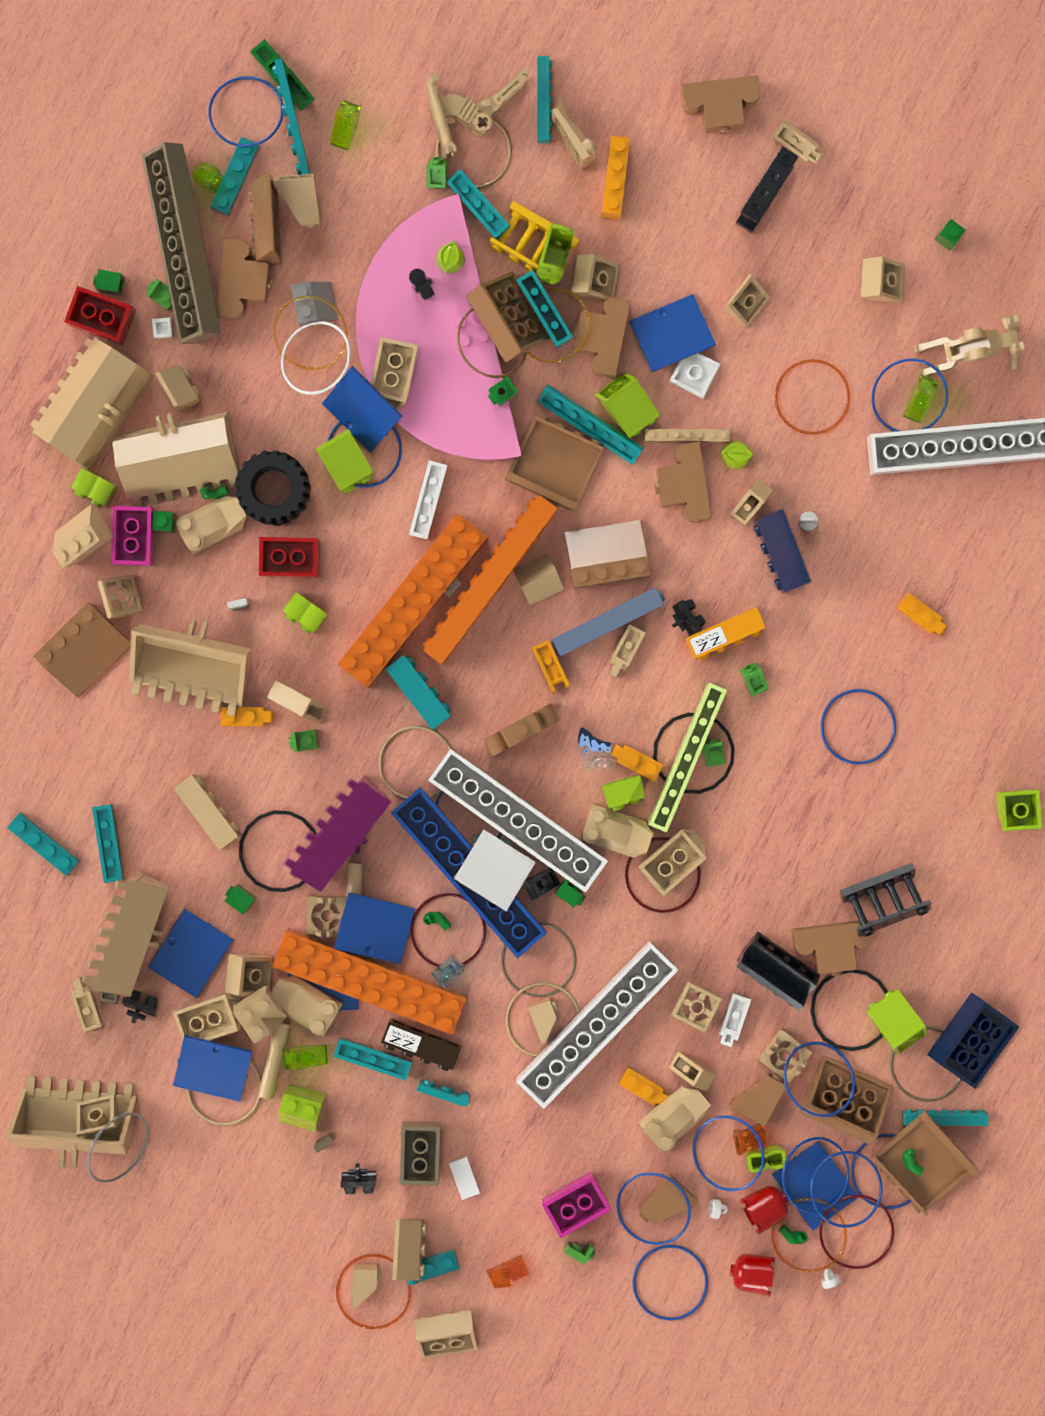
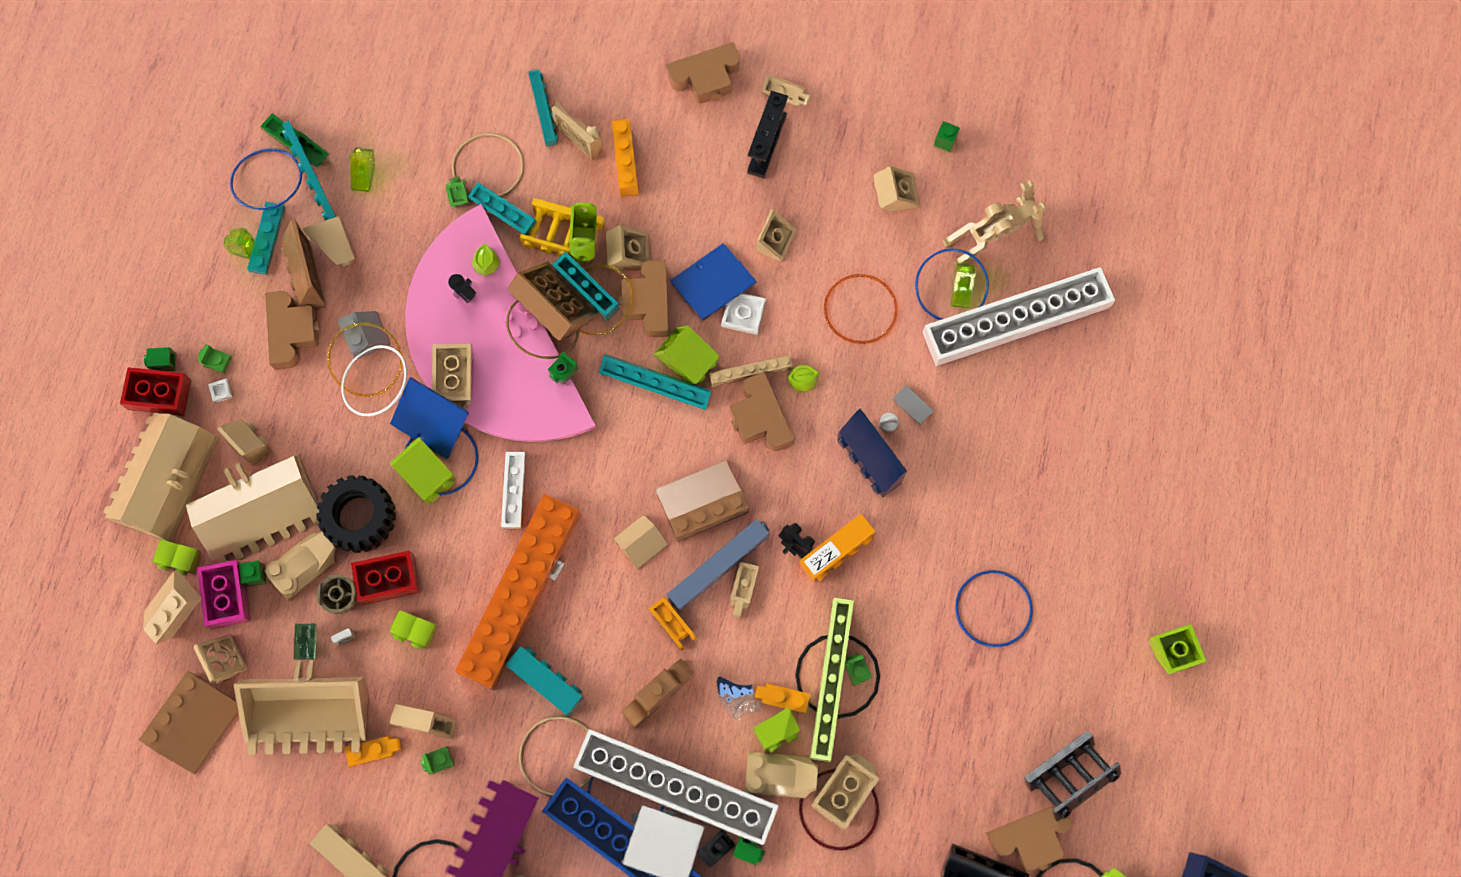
camera: 15 degrees left, 15 degrees down
(181, 243) = (224, 308): dark tan brick -> none
(201, 600) = (304, 641): none -> clear green hips
(214, 494) = (299, 535): green arm -> none
(240, 563) = (336, 594): none -> dark tan cylinder
(466, 111) = (473, 131): tan piece -> none
(490, 580) = (591, 552): orange brick -> none
(555, 463) = (630, 426): medium nougat panel -> none
(751, 501) = (829, 416): tan slope -> none
(754, 679) = (878, 586): bright green bracket -> none
(836, 509) = (912, 405): none -> light grey tile
(921, 614) = (1024, 484): light orange hinge -> none

